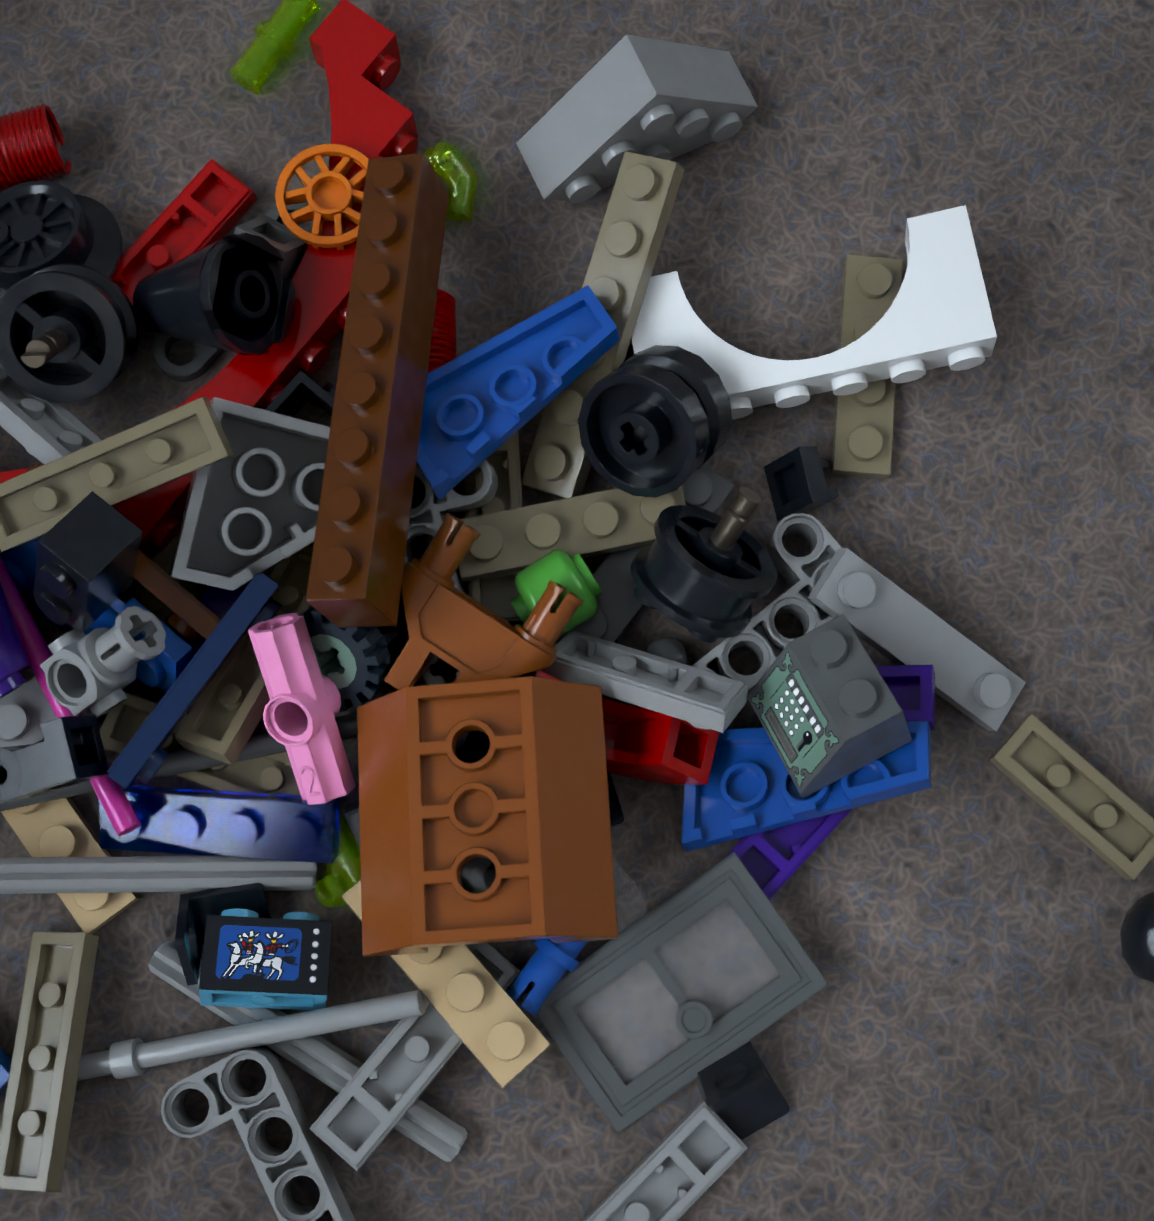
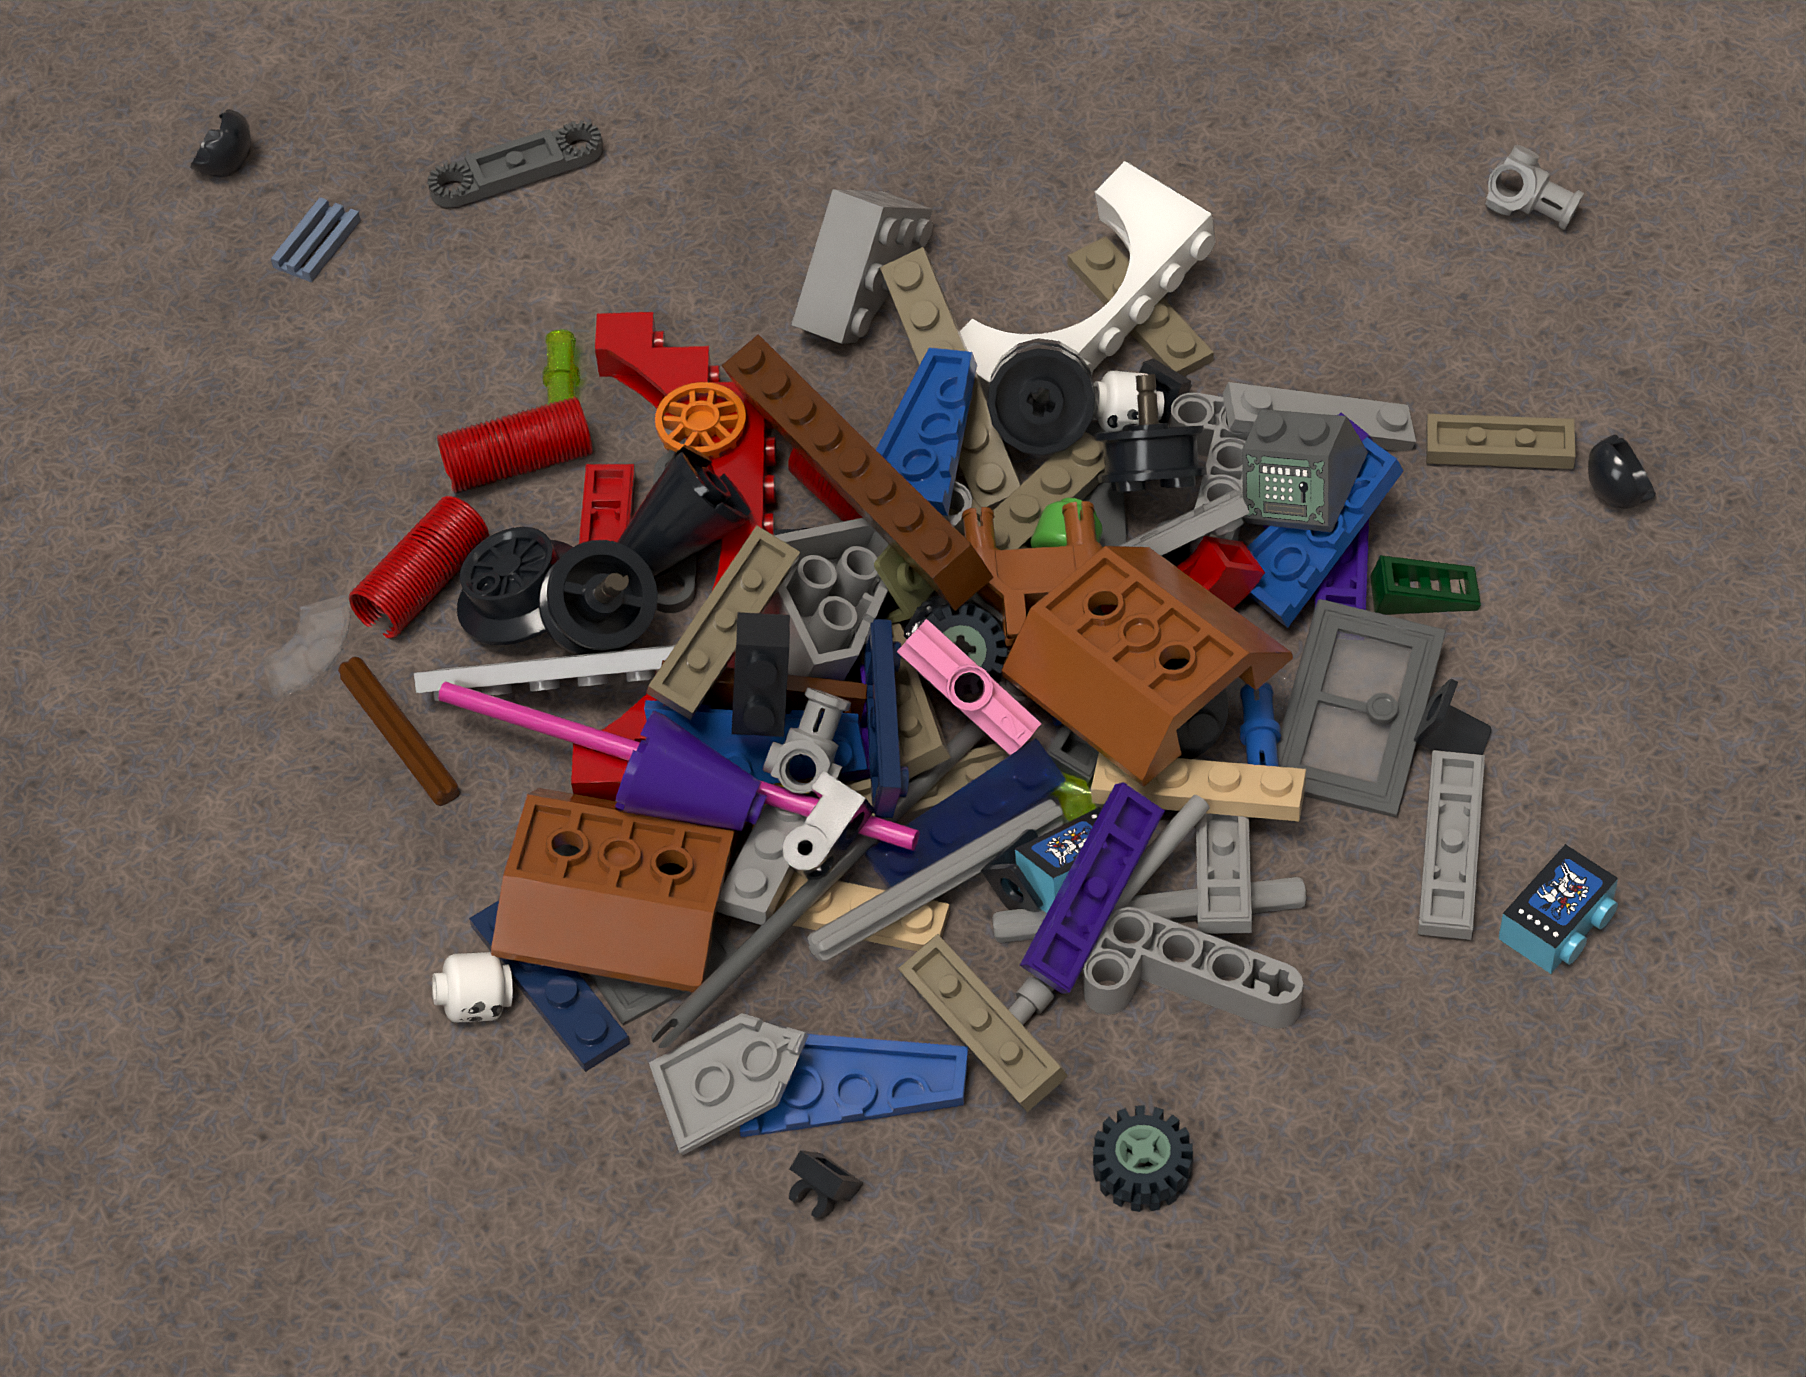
camera: 35 degrees left, 25 degrees down
(178, 89) = (534, 436): none -> red piece
(233, 1023) = (1092, 888): none -> dark purple plate
(751, 466) = (1117, 401): none -> white head
(822, 872) = (1403, 599): none -> dark green slope

